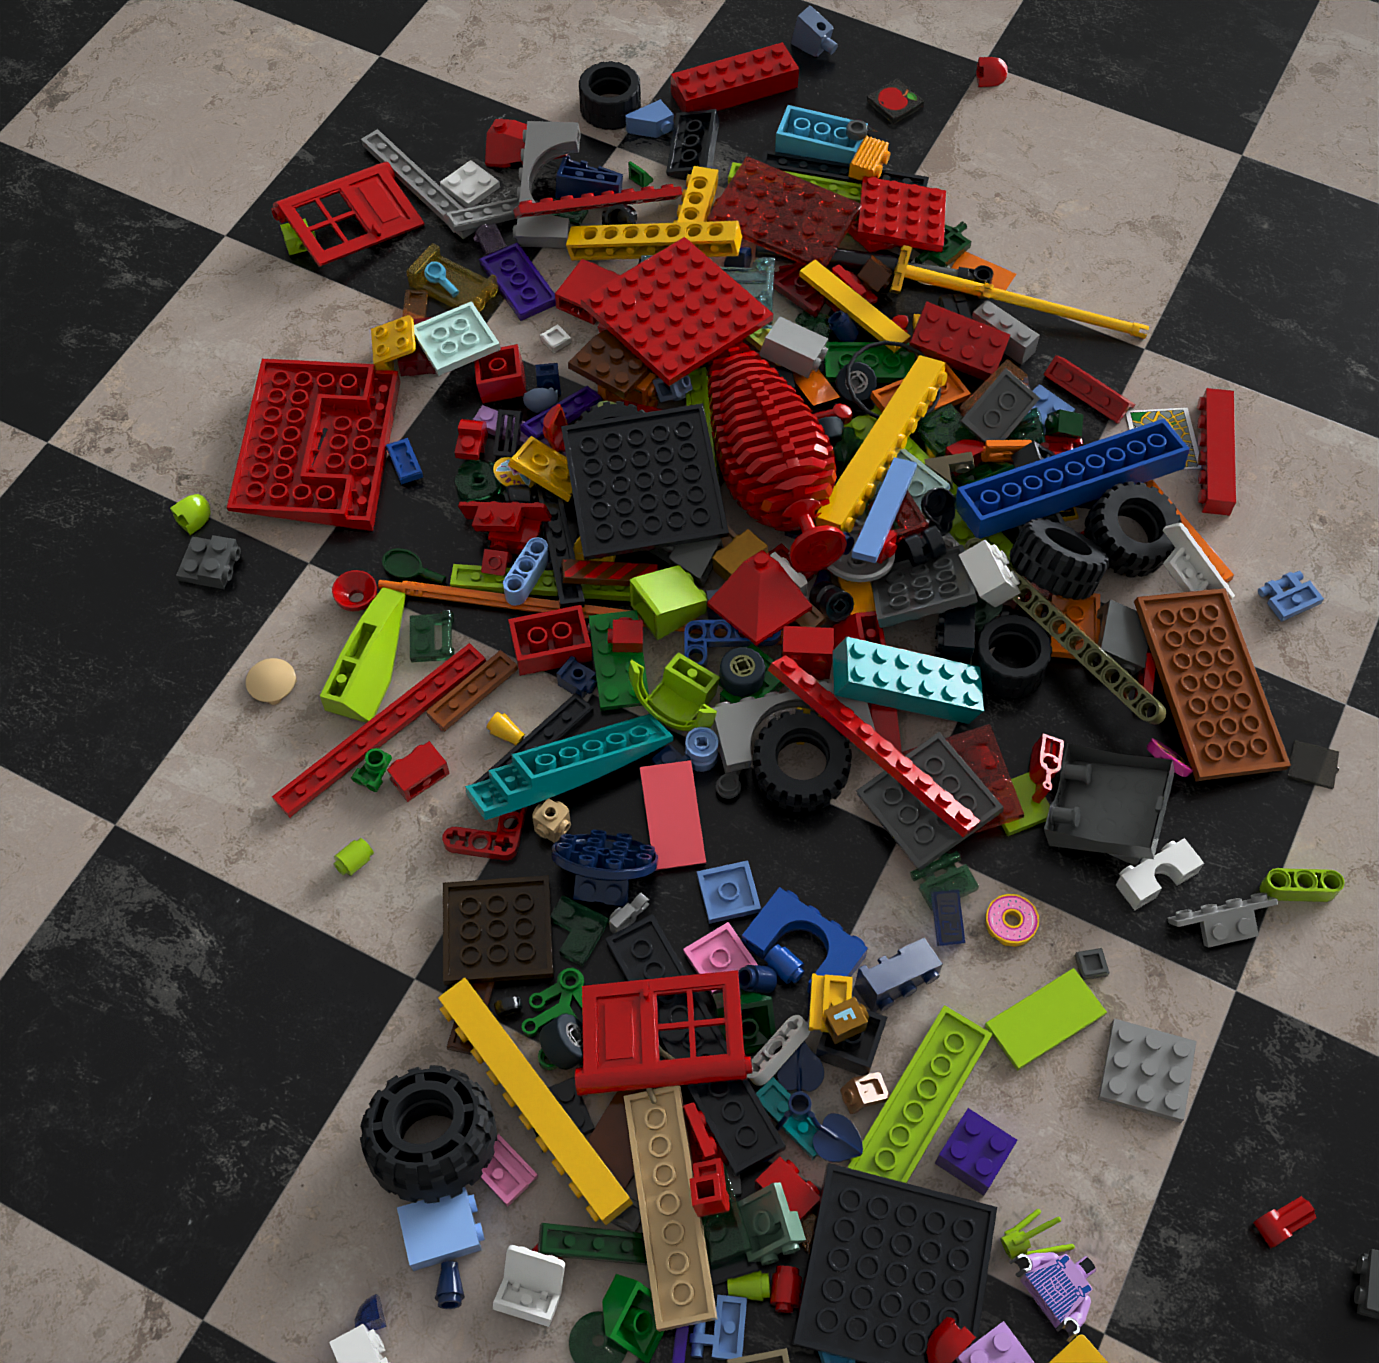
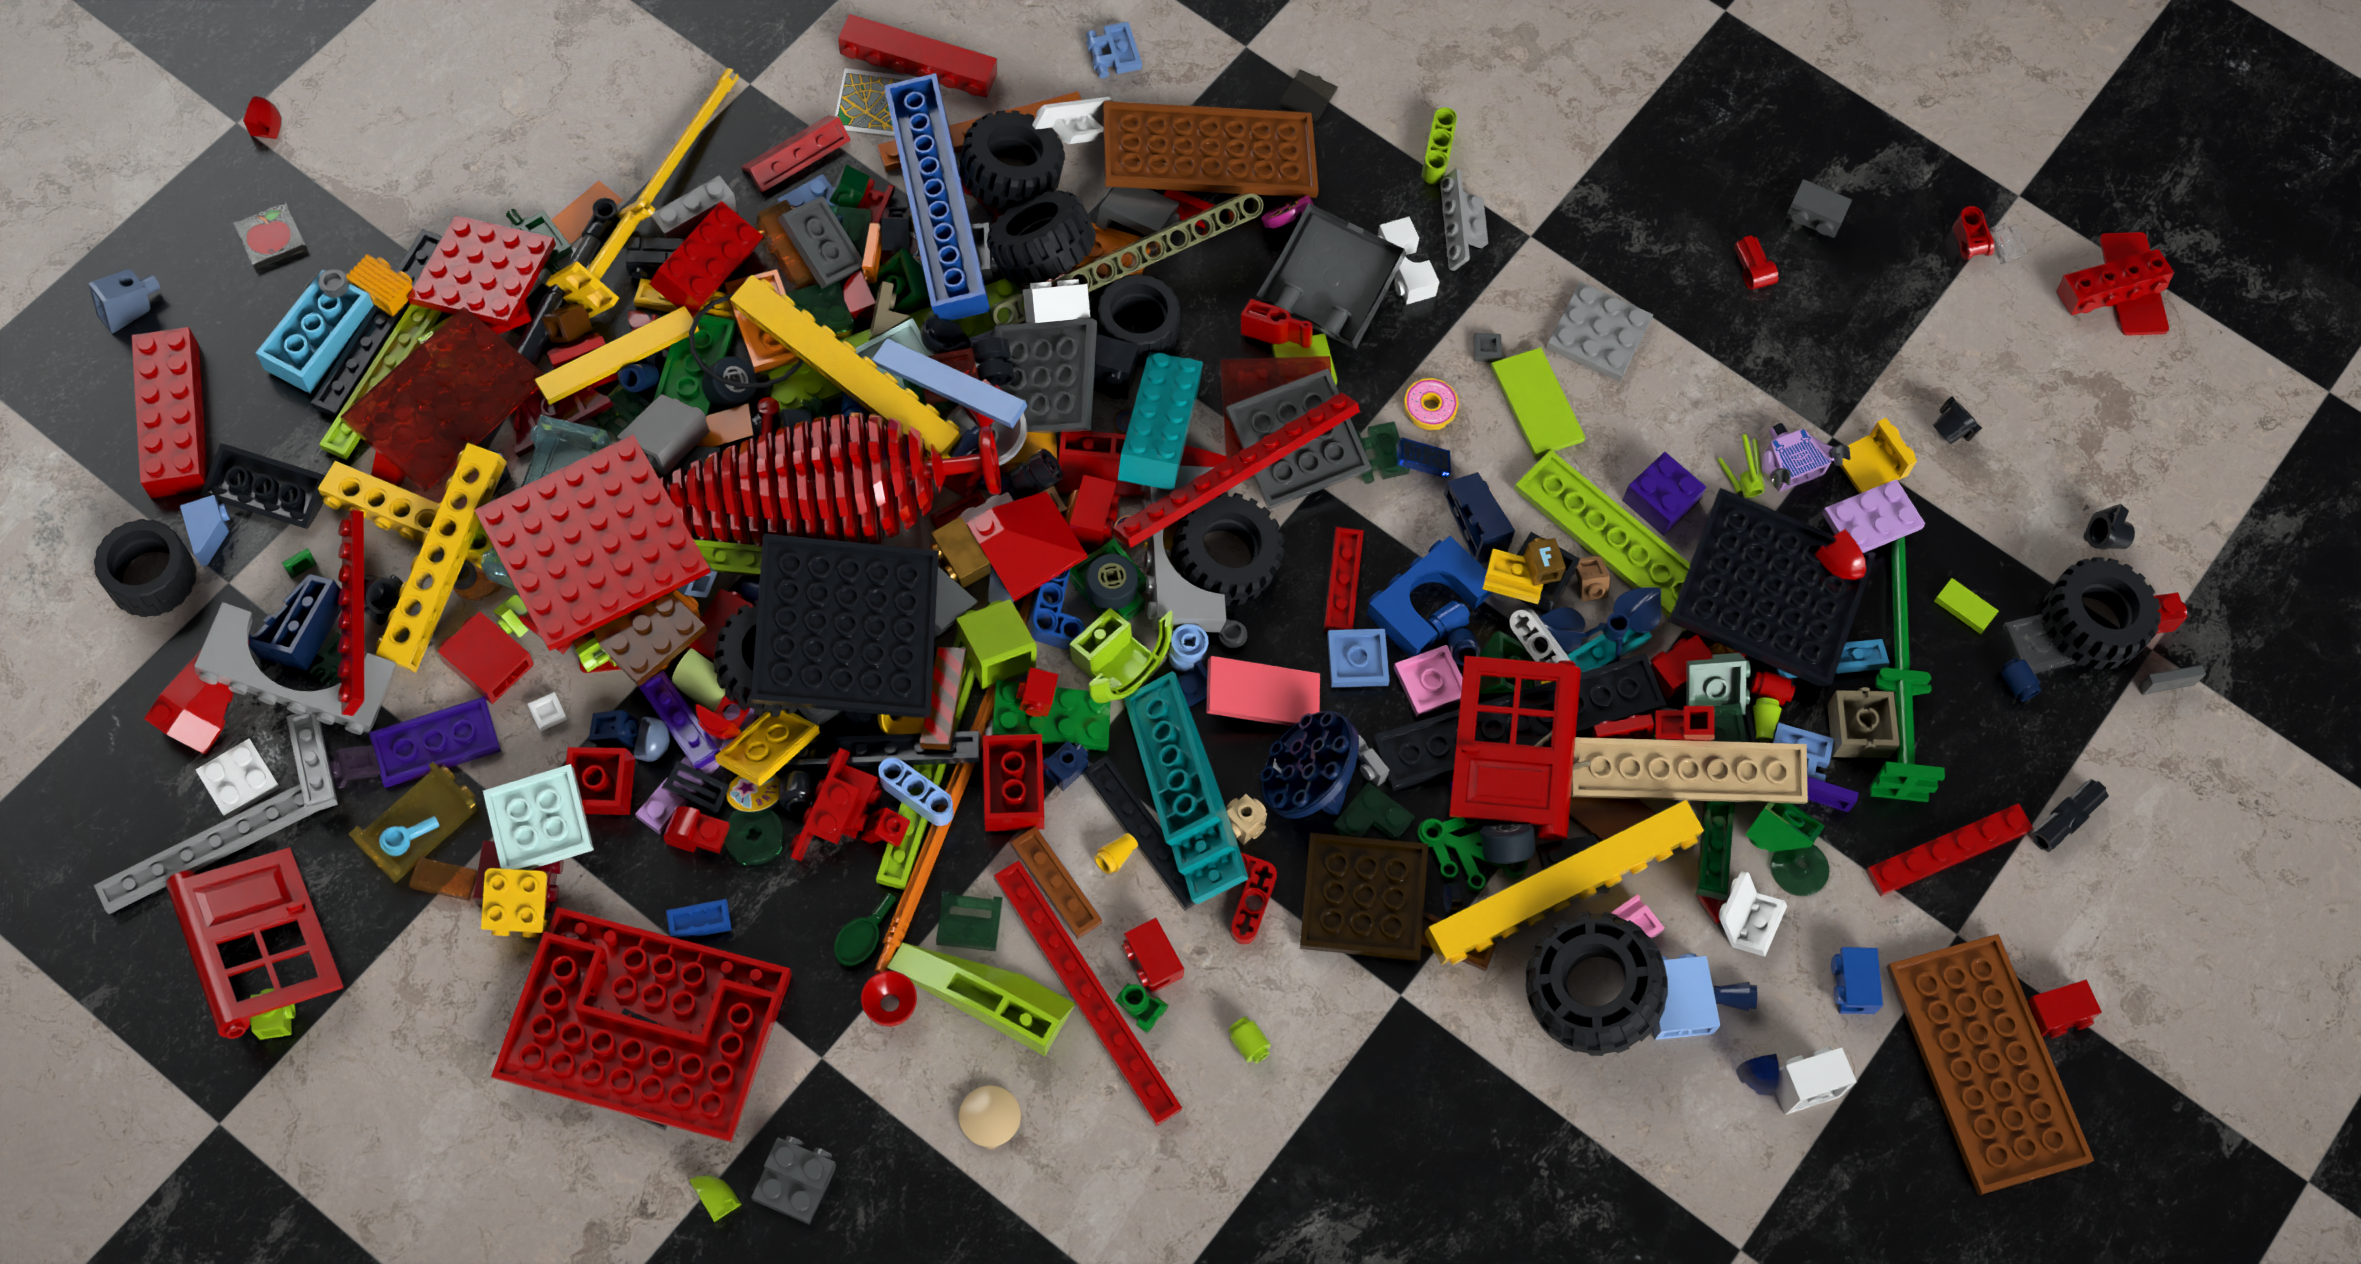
camera: 85 degrees left, 5 degrees up
(805, 870) = (1343, 579): none -> red tile

